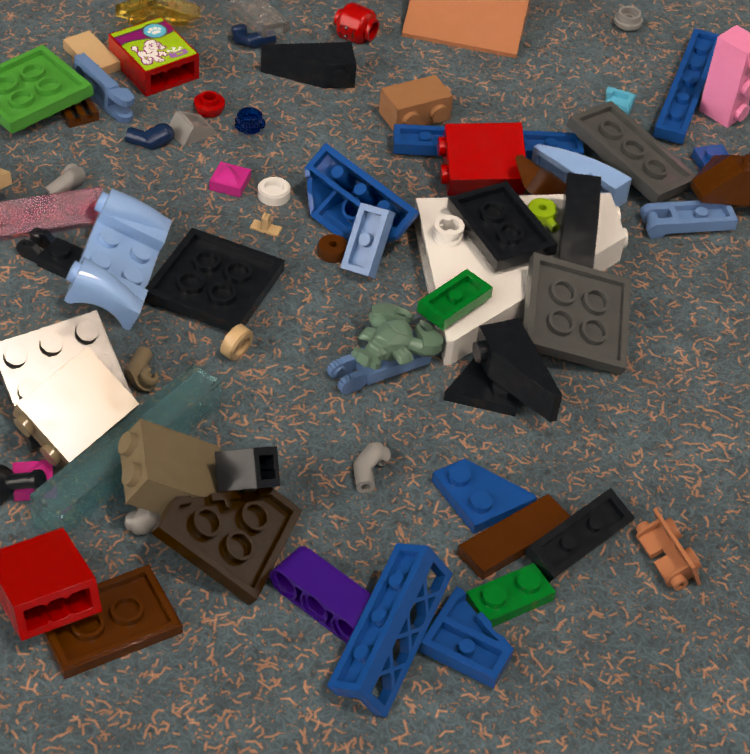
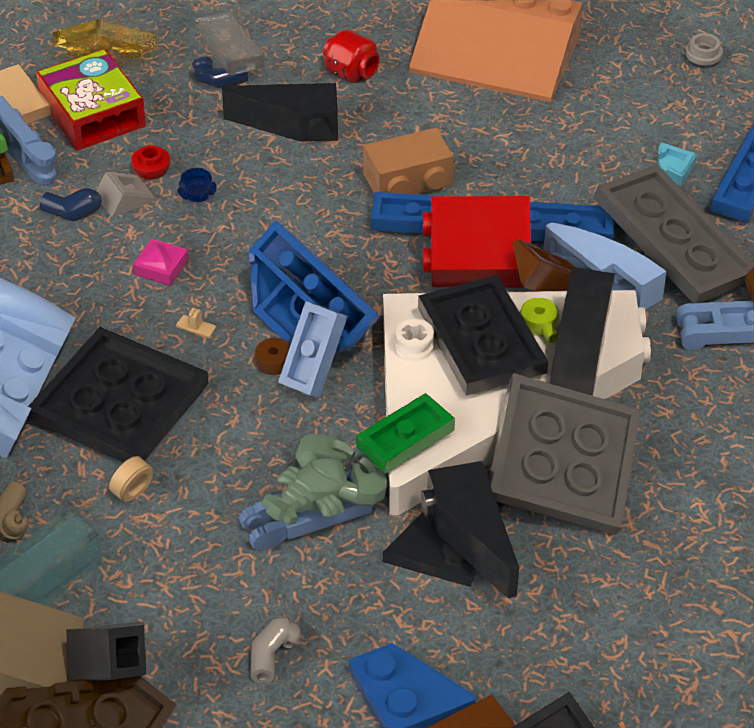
camera: 10 degrees right, 0 degrees up
(274, 191) = (213, 278): white tile -> none

